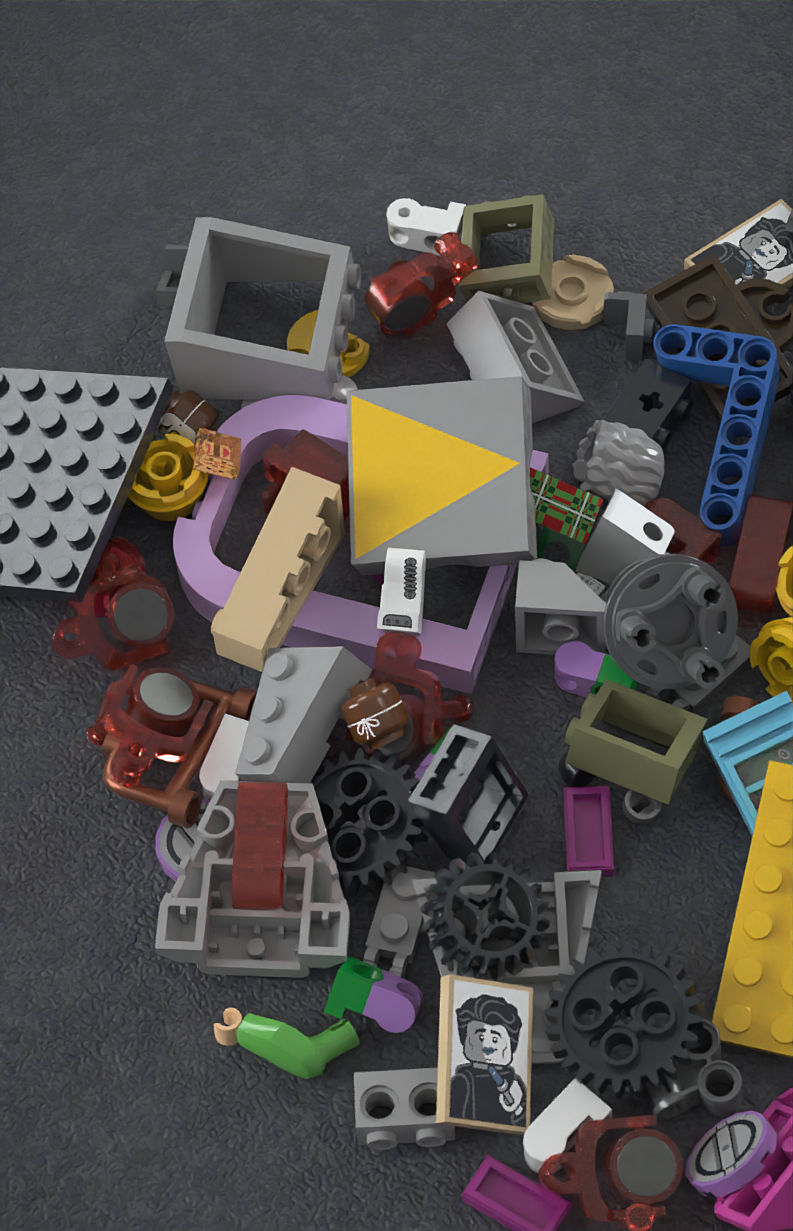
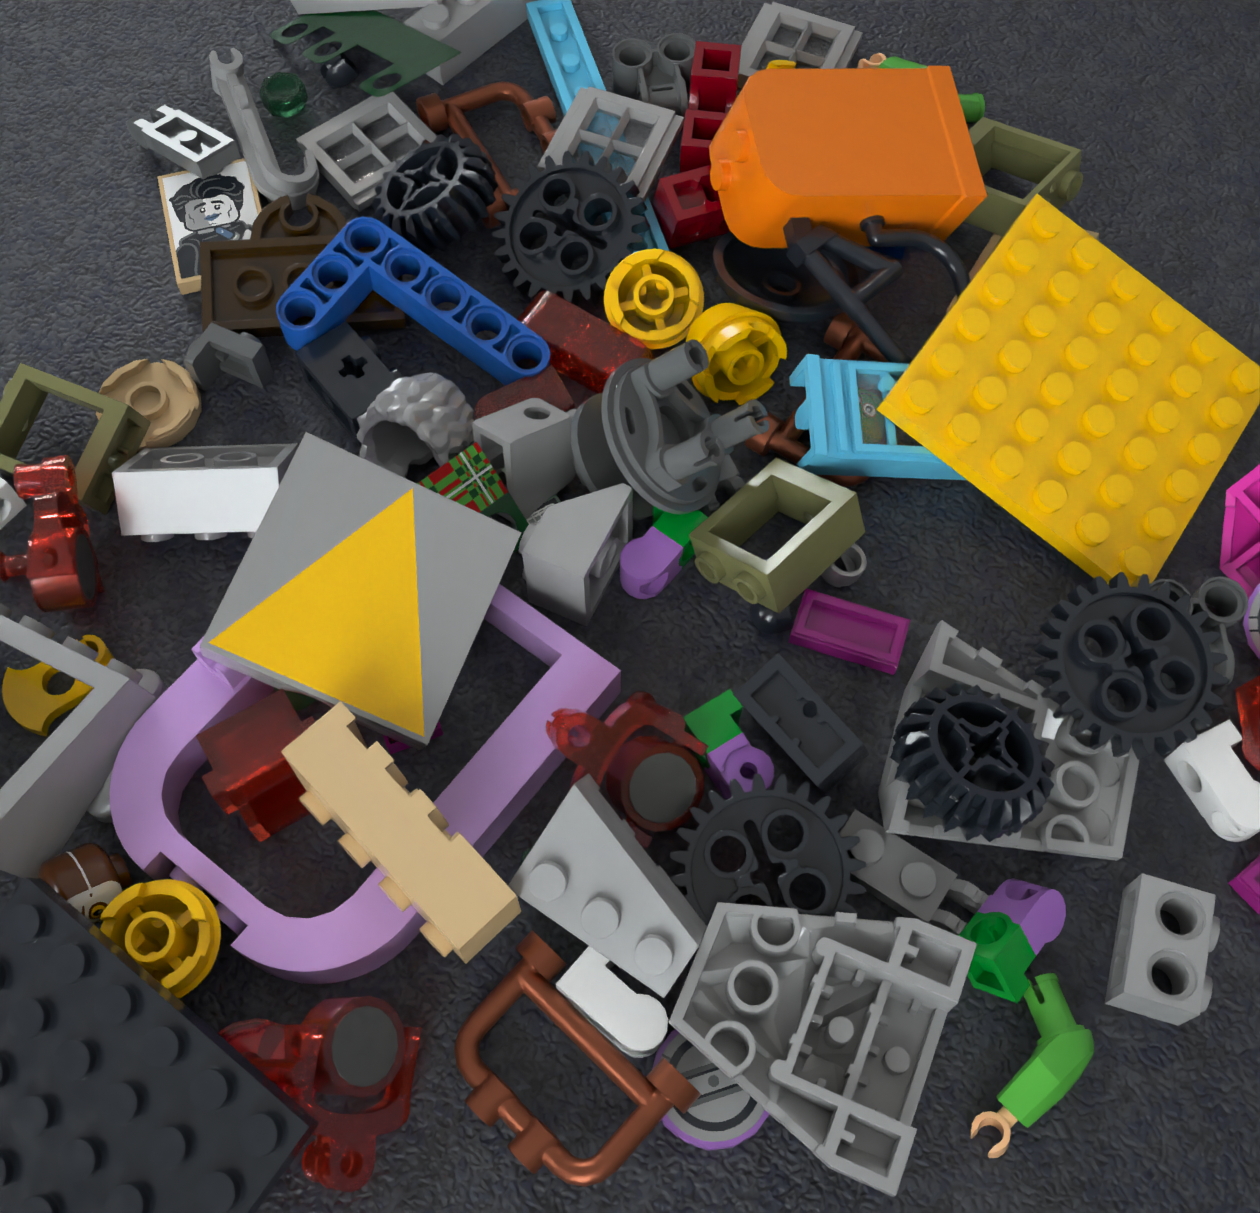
camera: 75 degrees left, 5 degrees up
(153, 721) = (517, 1093): clear red piece -> none
(217, 453) = (171, 857): clear orange tile -> none
(259, 845) = (803, 996): clear red beam -> none
(374, 713) = (656, 790): reddish brown head -> none
(403, 591) = (503, 697): white leg -> none
(484, 1055) = (1144, 830): tile -> none

